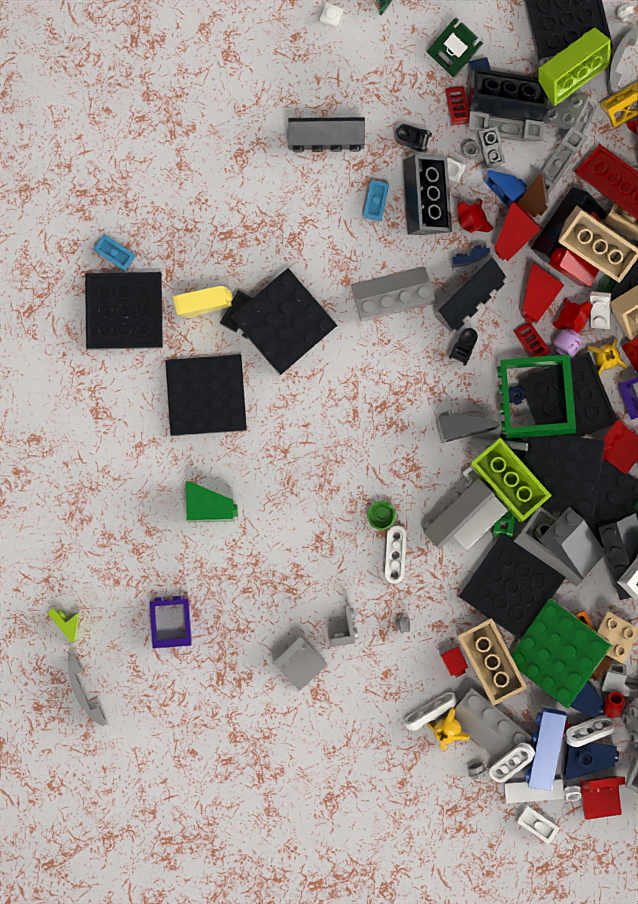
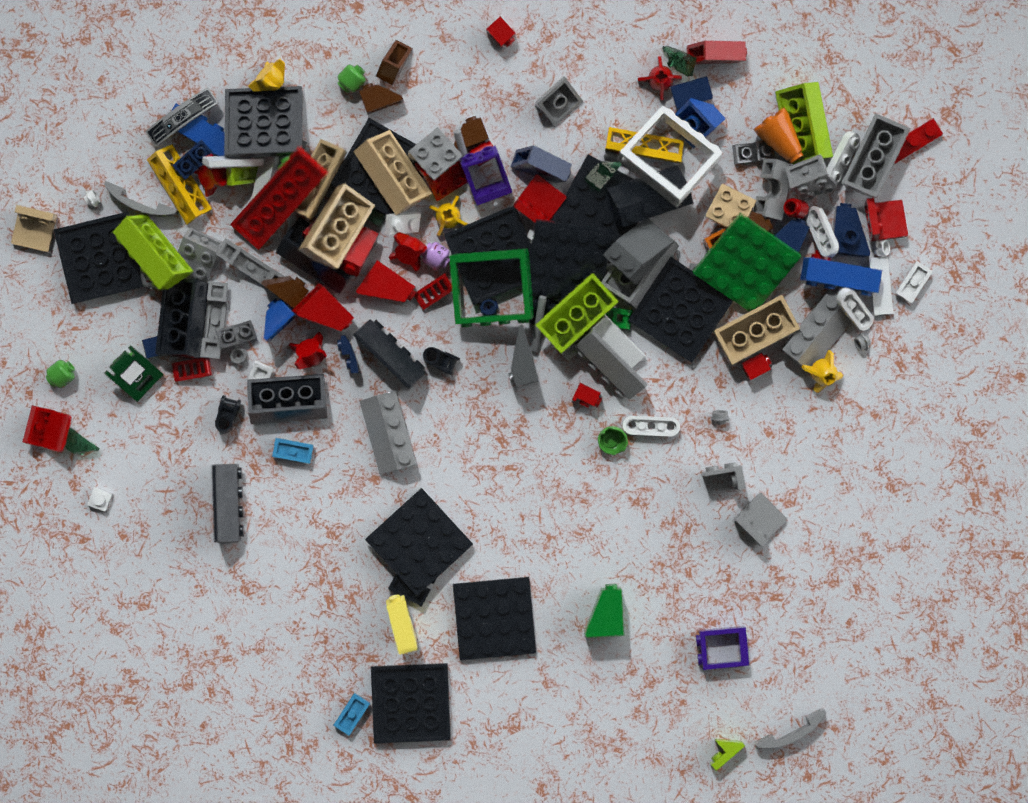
camera: 85 degrees left, 5 degrees up
(426, 491) = (587, 396): none -> red brick
(430, 711) = (805, 389): white plate -> none

